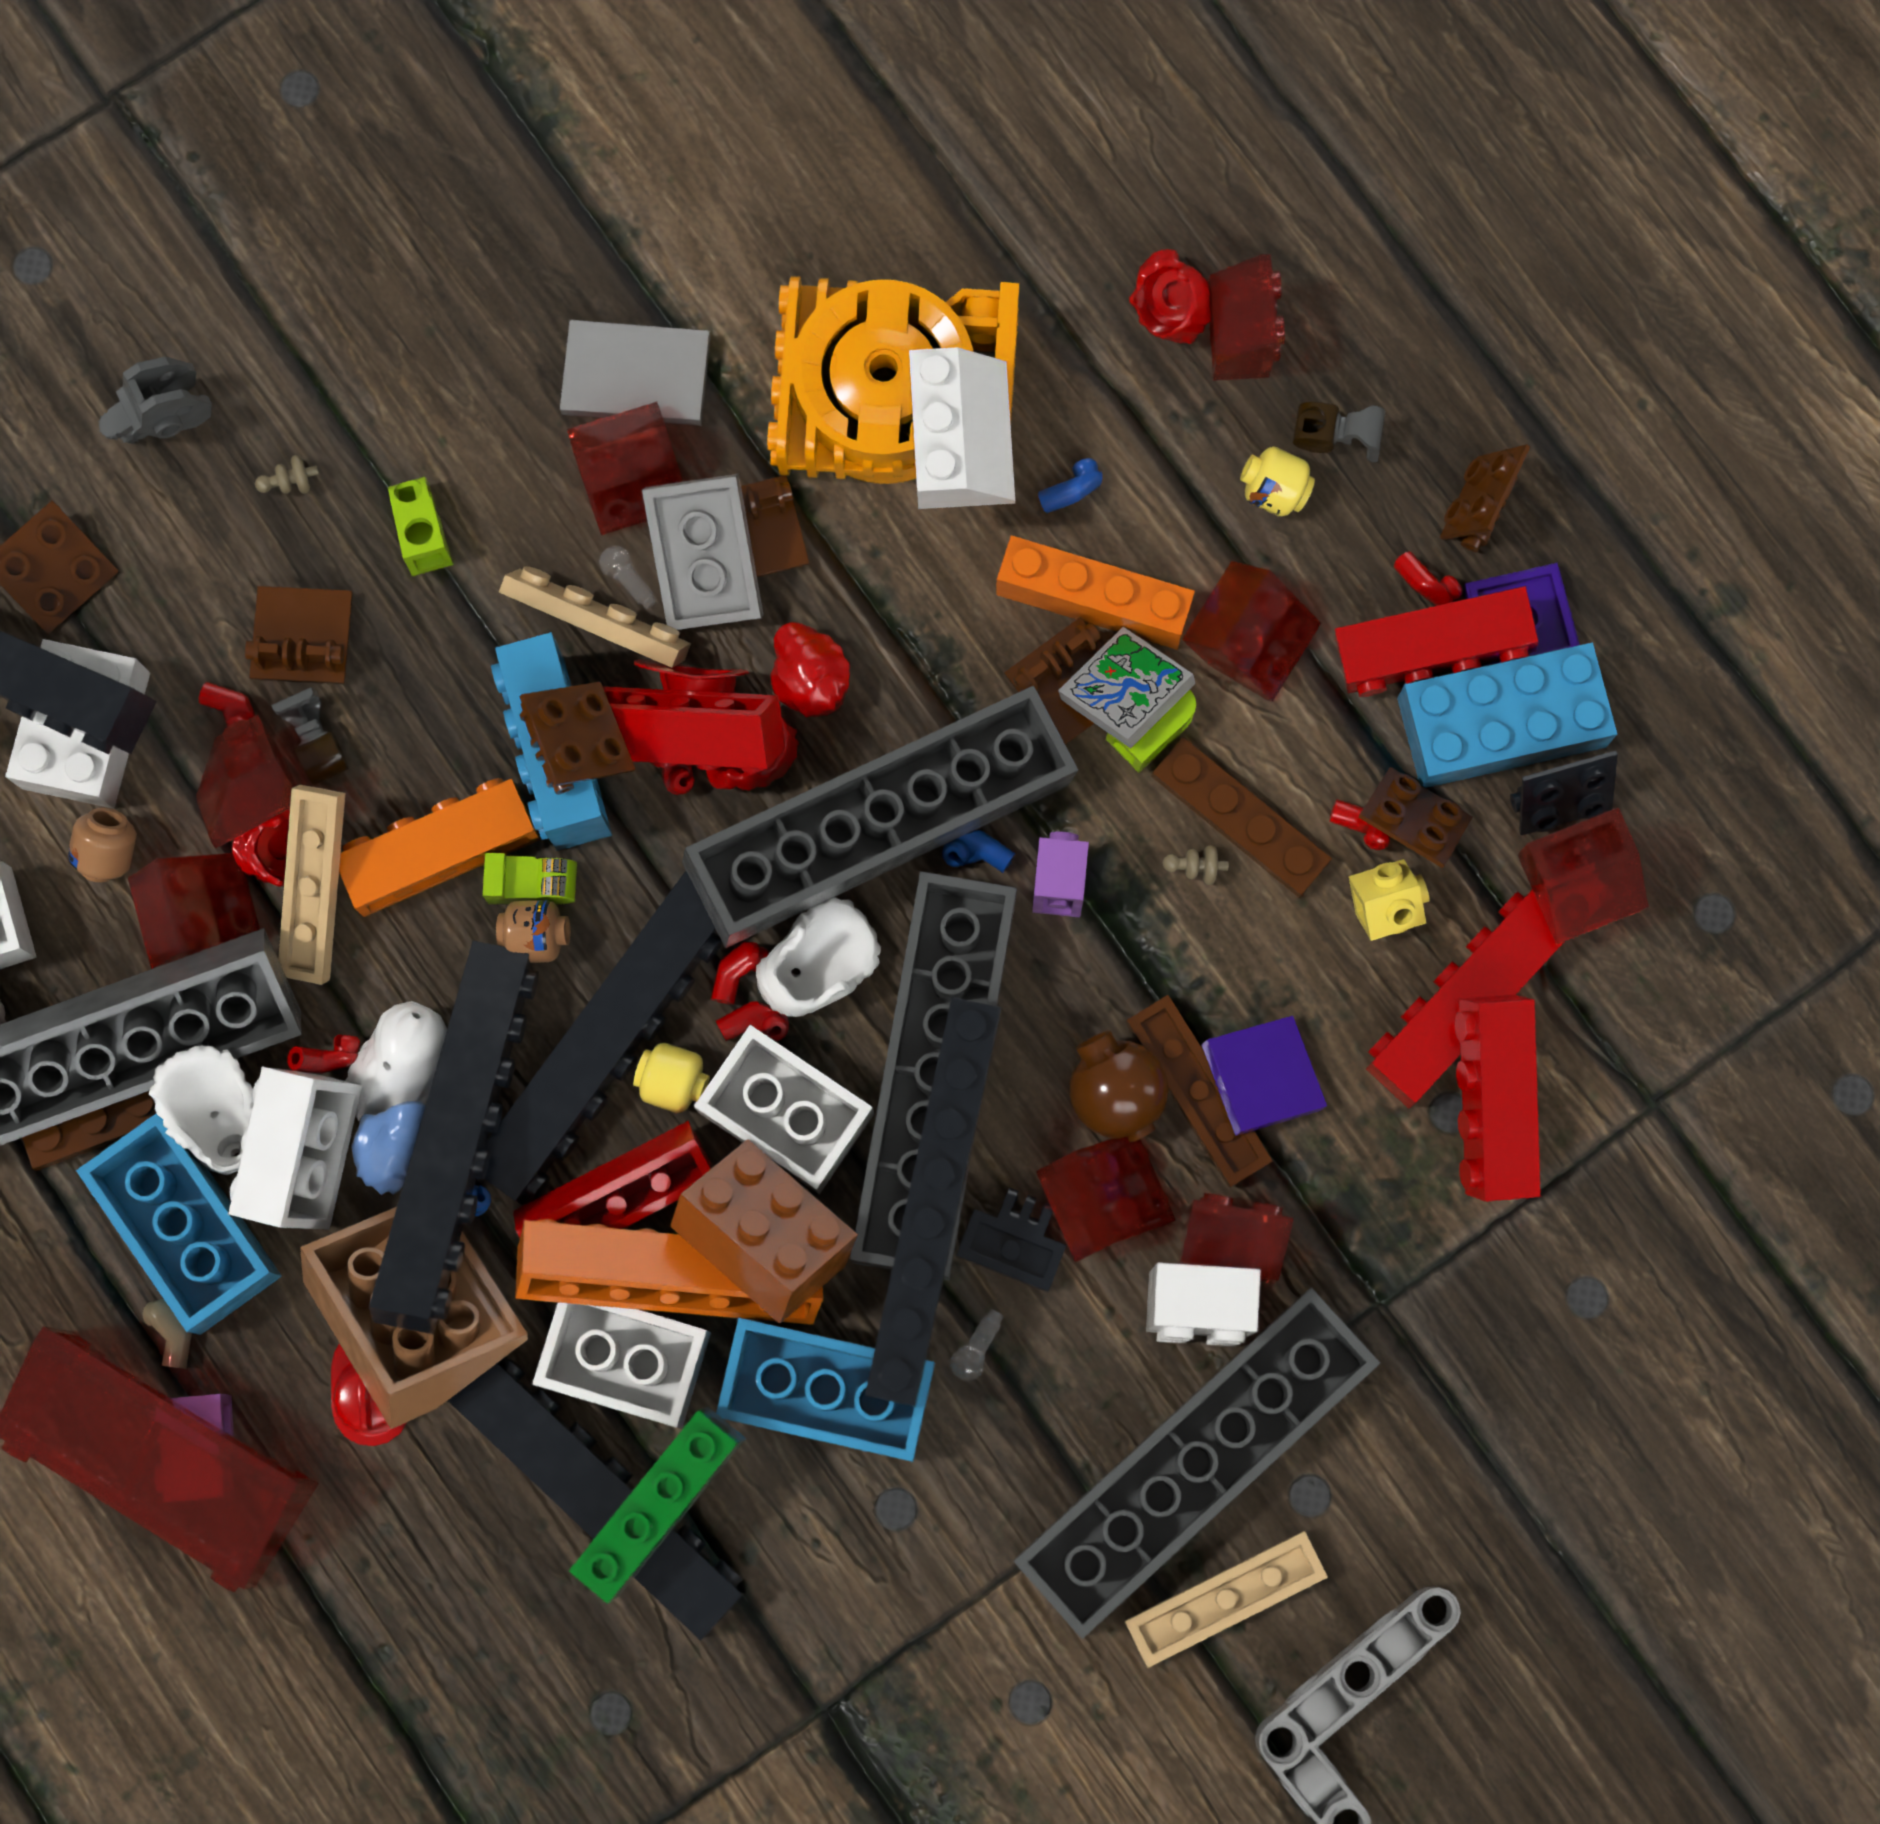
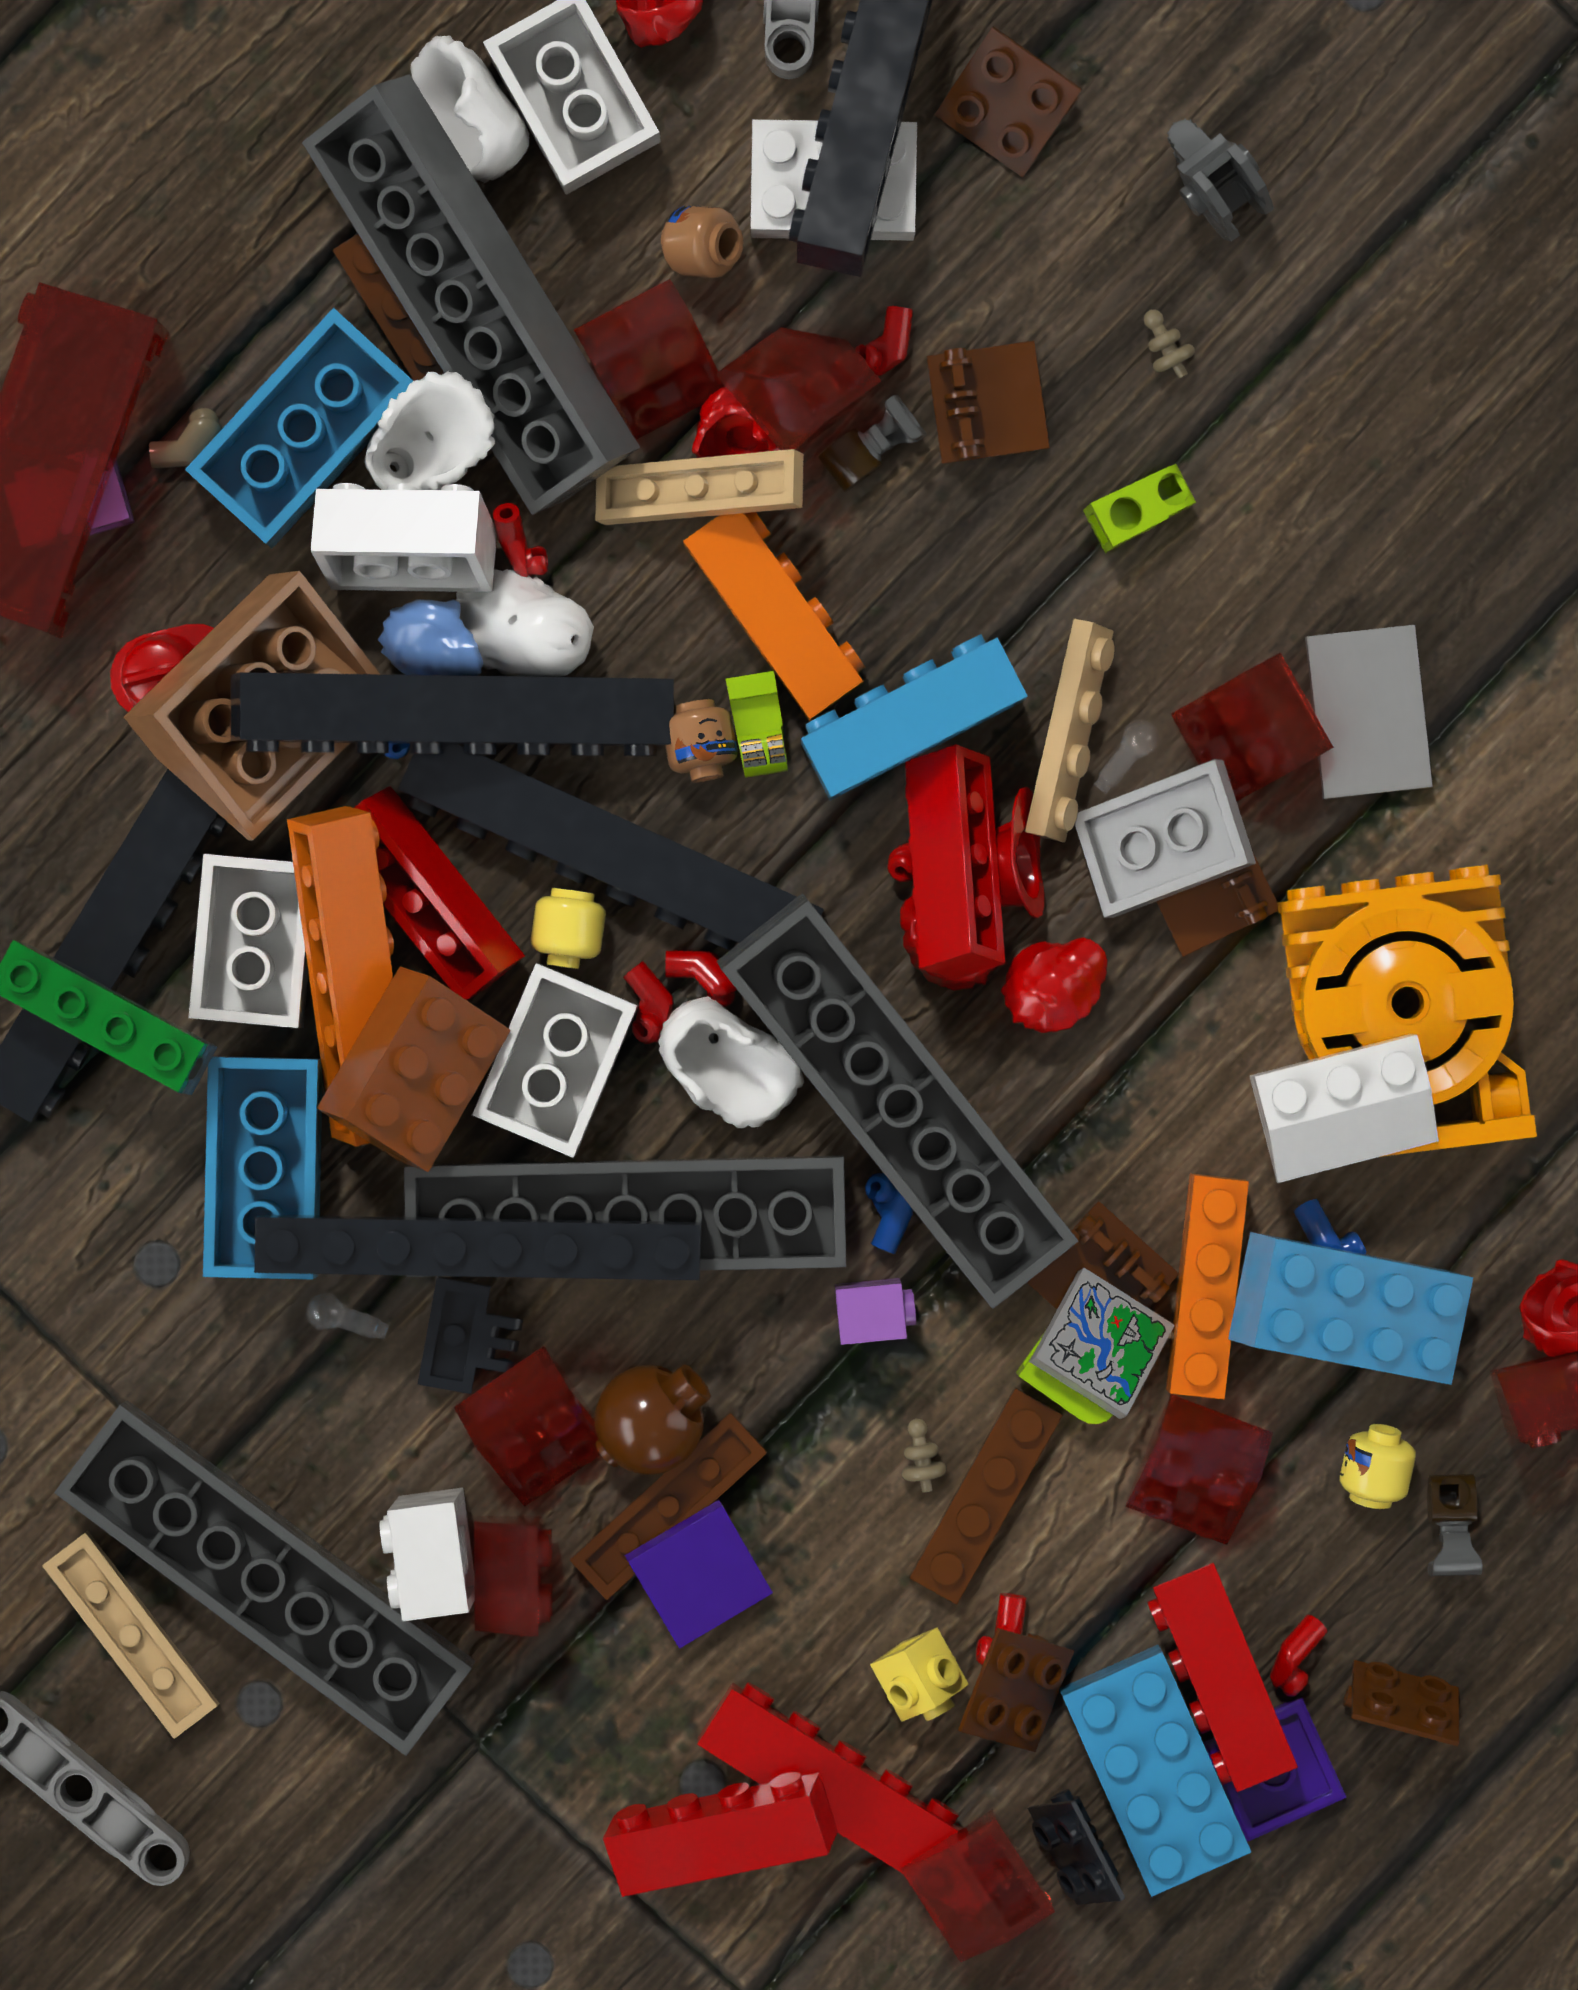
camera: 75 degrees right, 10 degrees up
(575, 735) = (913, 750): reddish brown hinge -> none
(1135, 472) = (1350, 1308): none -> dark azure brick

